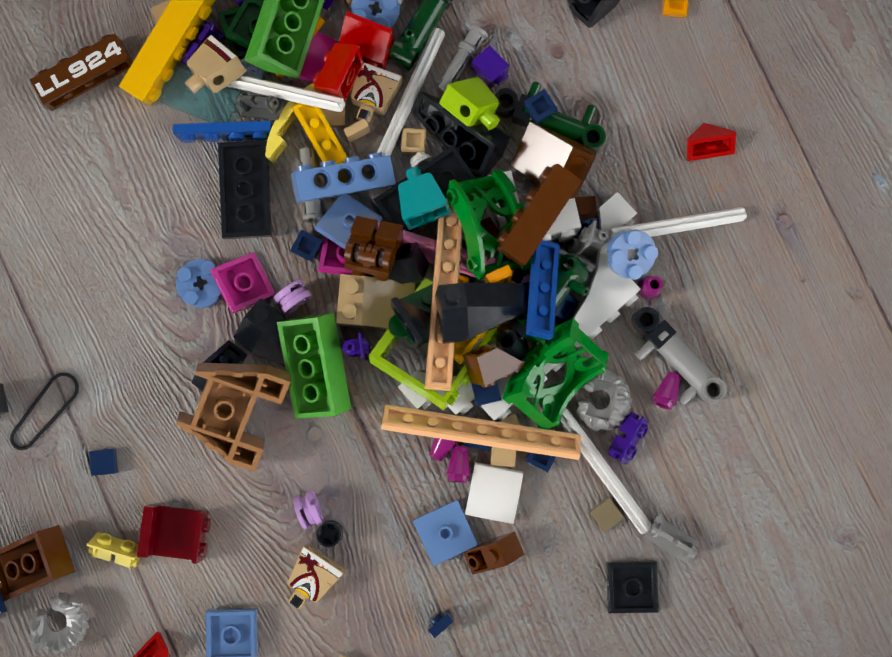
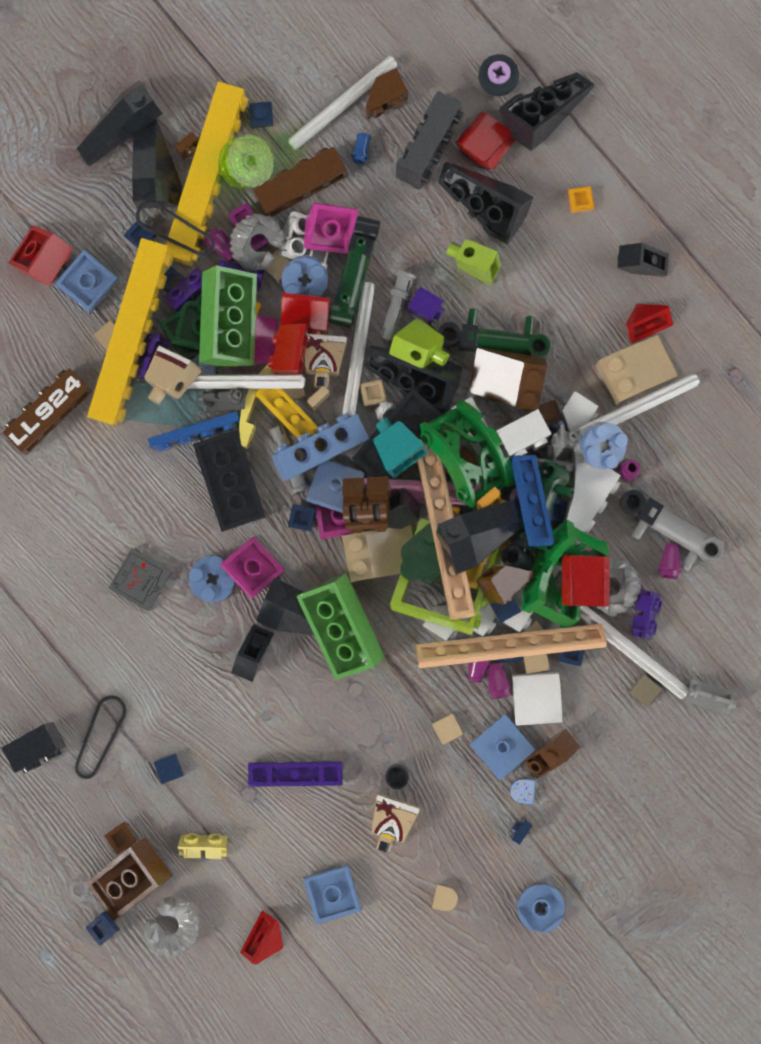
camera: 15 degrees left, 0 degrees up
(35, 518) = (121, 837): none -> reddish brown plate
(128, 264) = (140, 579): none -> dark grey tile
(173, 533) = (253, 815): dark red panel -> none
(227, 407) = (274, 683): medium nougat wedge -> none
(228, 502) = (295, 774): none -> dark purple plate
(292, 297) = (302, 568): lavender wheel -> none
(308, 509) = (375, 760): lavender wheel -> none
(357, 347) = (376, 599): dark purple hinge -> none
(394, 499) = (447, 729): none -> tan tile
(412, 318) = (421, 559): black slope -> none
(454, 583) = (523, 791): none -> light blue tile
(538, 214) = (509, 434): reddish brown brick -> none
(540, 106) = (483, 331): dark blue plate -> none
(553, 34) = (476, 260): none -> lime torso
(575, 386) = (585, 580): none -> red slope
(632, 587) = (686, 750): black tile -> none
(684, 188) = (636, 370): none -> tan slope
(722, 79) = (642, 260): none -> black slope

